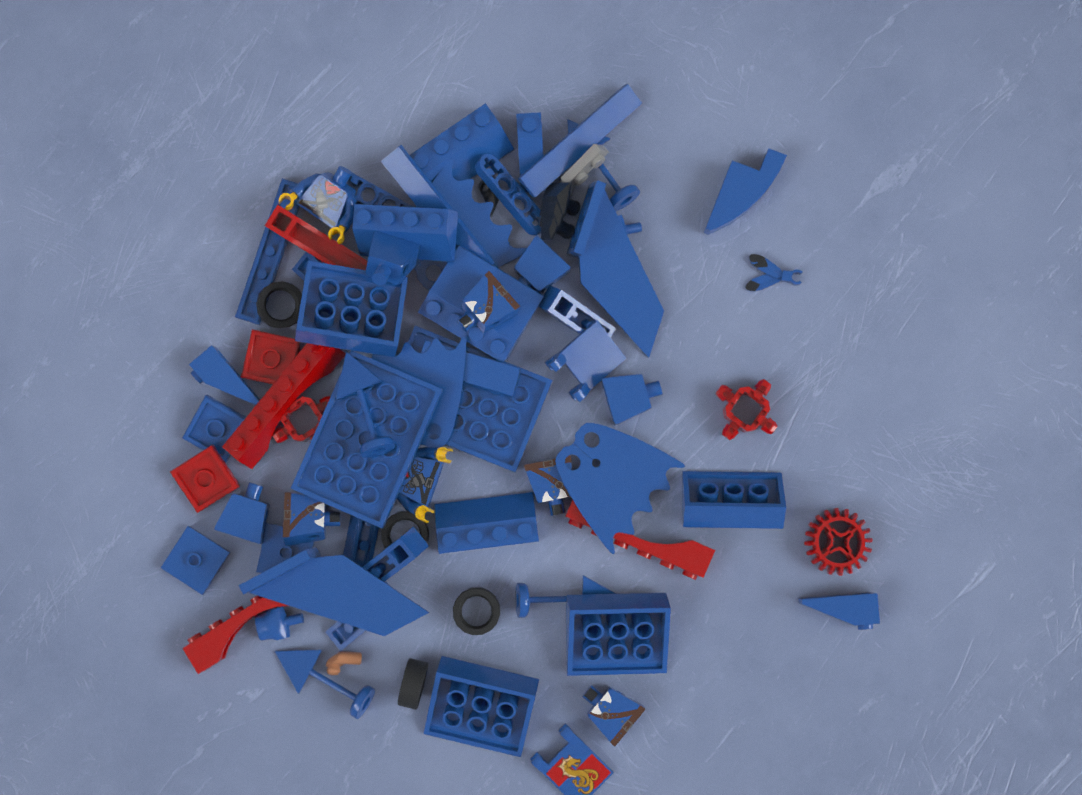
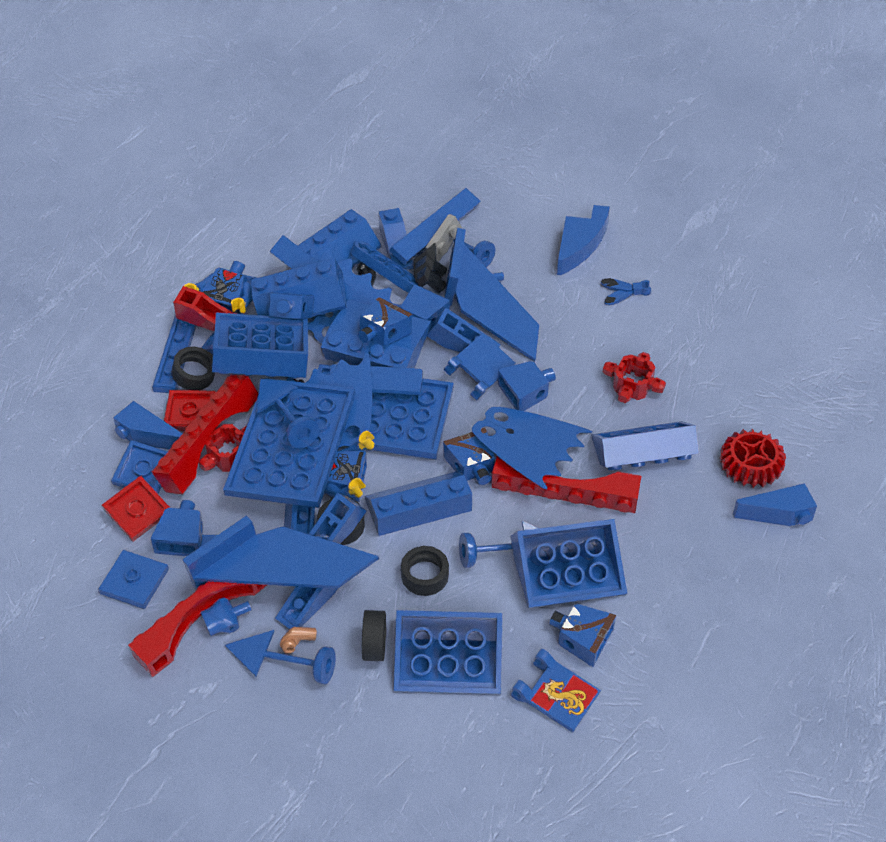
camera: 15 degrees left, 35 degrees down
(306, 519) = (234, 509): torso -> none

